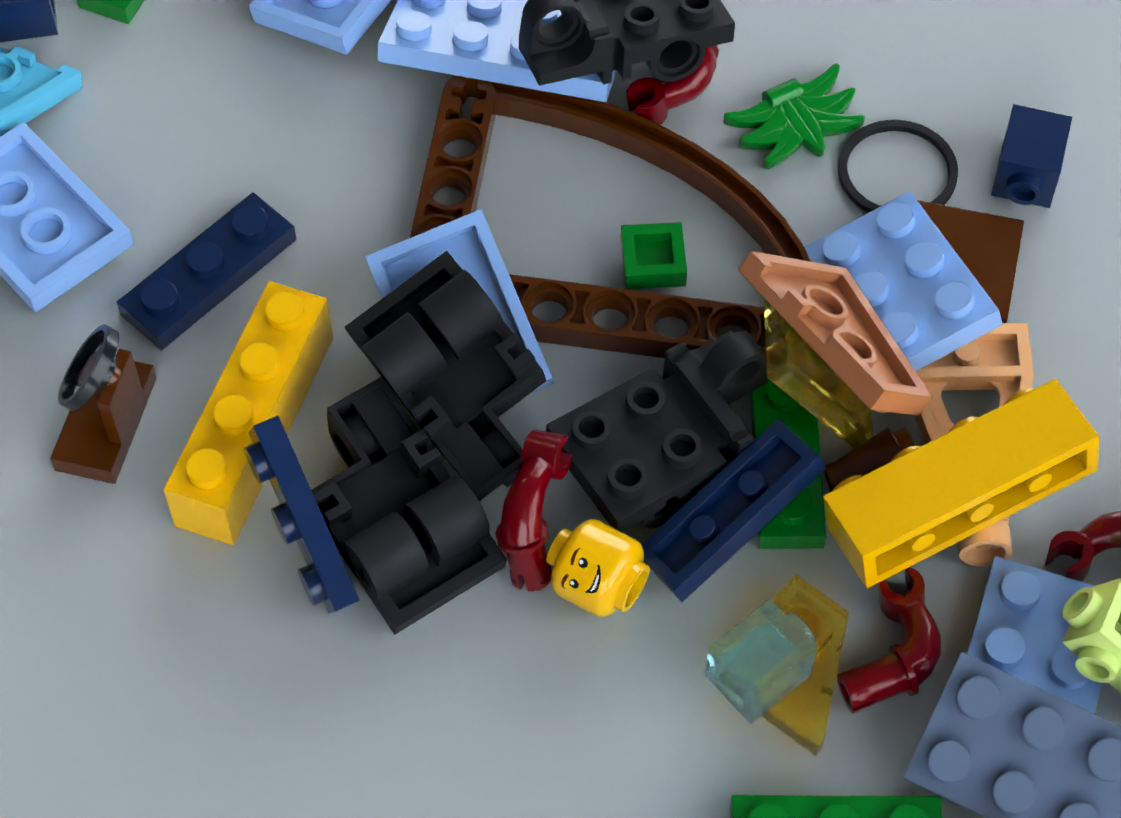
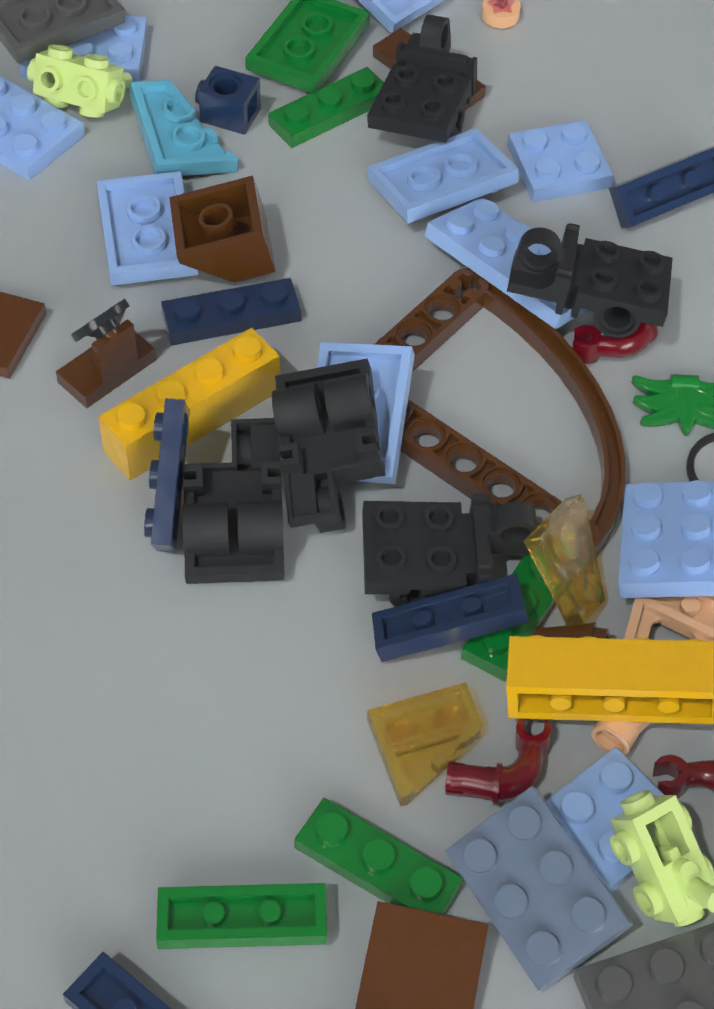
camera: 30 degrees right, 5 degrees down
(137, 172) = (223, 230): none -> reddish brown slope
(522, 528) = (301, 551): dark red piece -> none
(597, 568) = (337, 608): yellow head -> none
(653, 255) = (519, 439): green plate -> none
(761, 660) = (396, 718): clear light blue brick -> none
(841, 328) = (598, 535): nougat wing -> none

